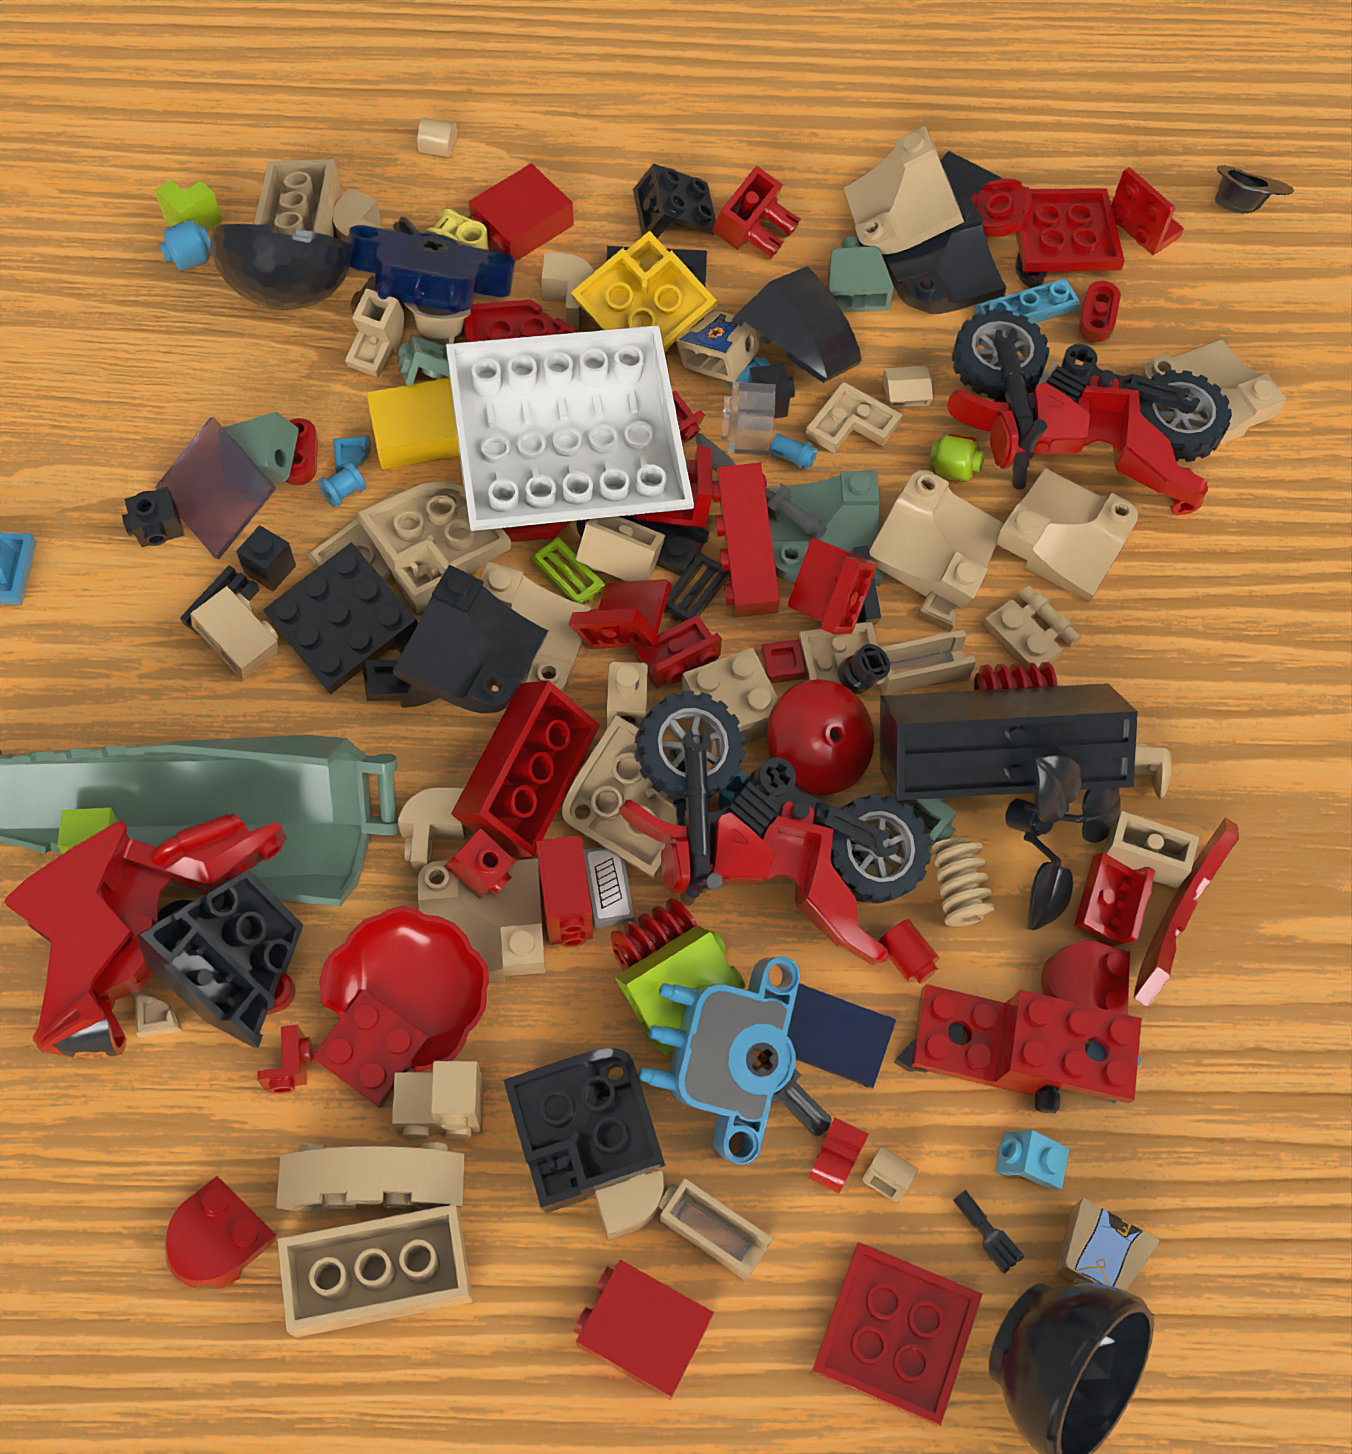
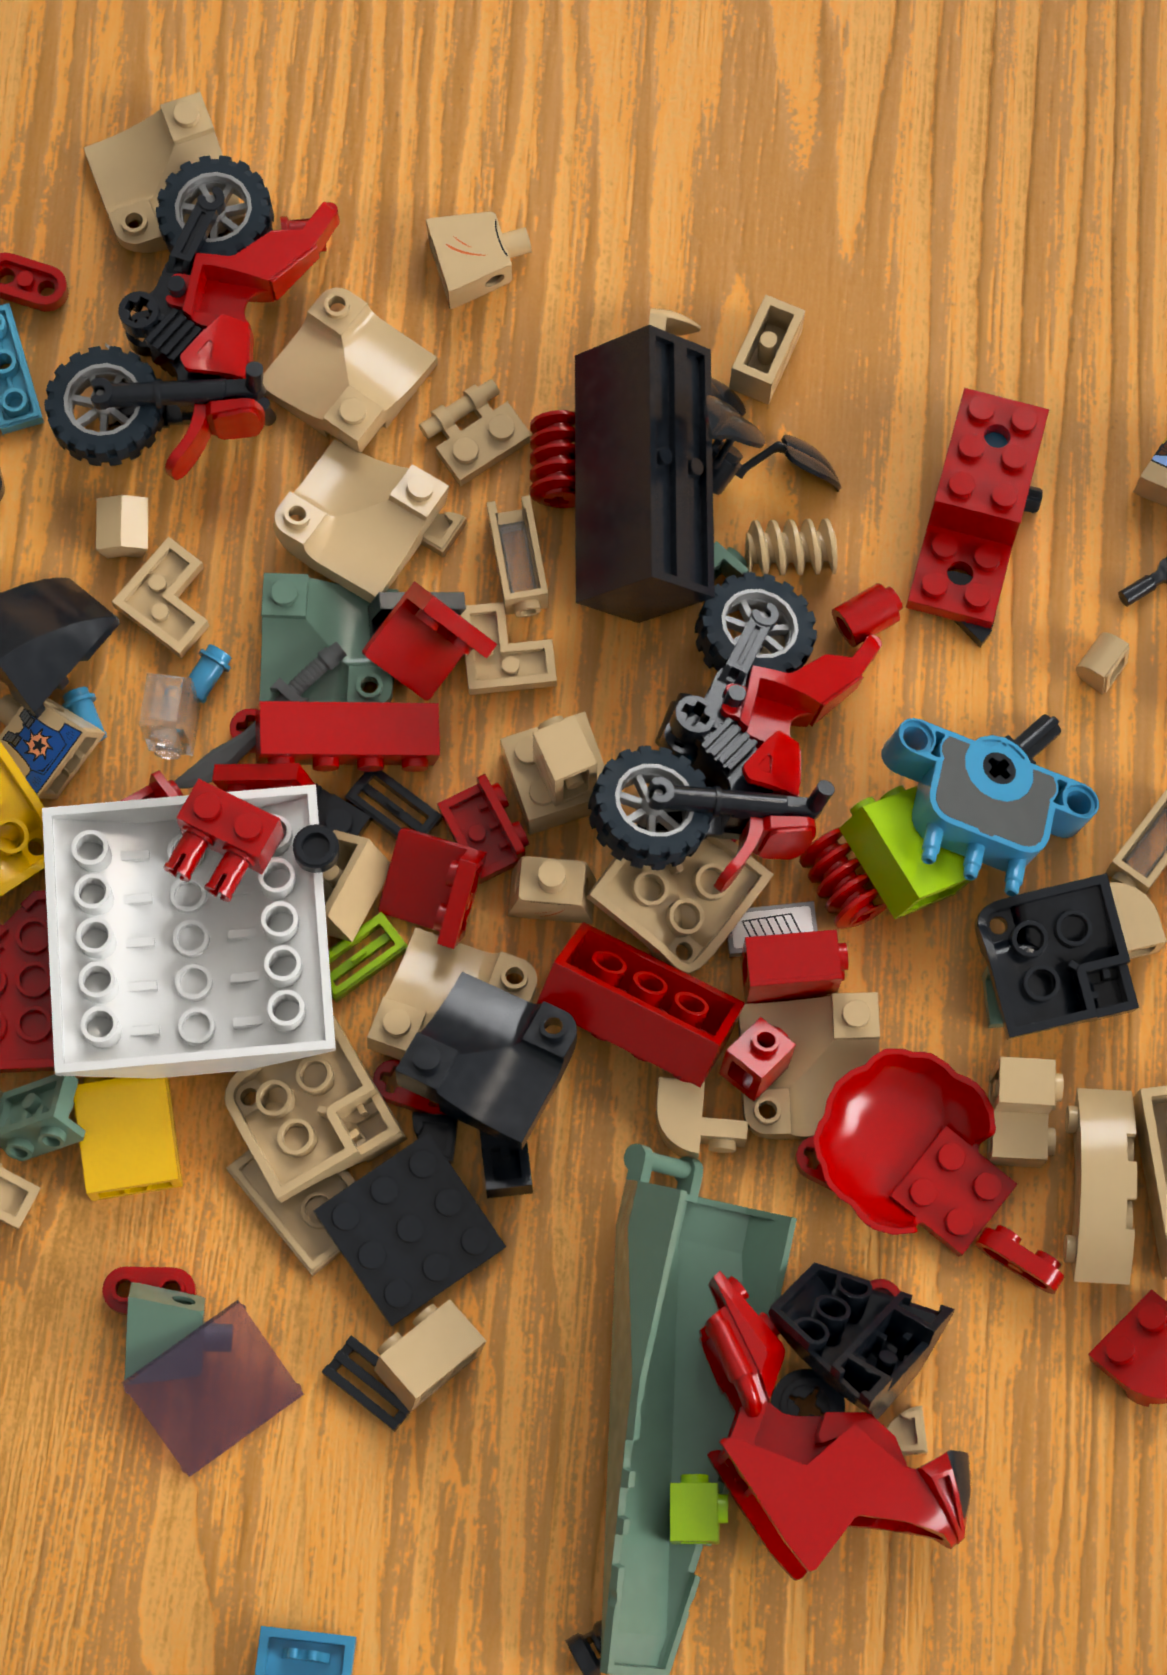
camera: 85 degrees left, 10 degrees up
(153, 517) = (245, 1450): black brick -> none
(266, 558) = (320, 1321): black brick -> none
(295, 1054) = (958, 1270): red bracket -> none
(296, 1123) = (1037, 1268): none -> red plate
(341, 484) = (212, 1231): dark azure bush -> none
(352, 450) = (158, 1225): dark azure tile -> none
(637, 503) = (316, 848): none -> black tile
(644, 439) = (229, 827): none -> red brick
(728, 672) = (564, 759): none -> tan brick
(783, 661) = (497, 713): red tile -> none
(784, 388) = (118, 691): black brick -> none
(801, 729) = (610, 678): red dish -> none
(837, 1155) = (1086, 712): red leg -> none
(839, 1035) = (955, 690): clear blue piece -> none
(864, 668) = (531, 619): black wheel -> none
(956, 457) = (235, 481): lime head -> none
(1033, 1158) = (1090, 523): medium azure bracket -> none
(1089, 975) = (907, 438): red slope -> none
(1114, 900) = (818, 395): red bracket -> none
(1162, 949) = (882, 360): red tile -> none
(1190, 614) = (473, 254): none -> tan torso

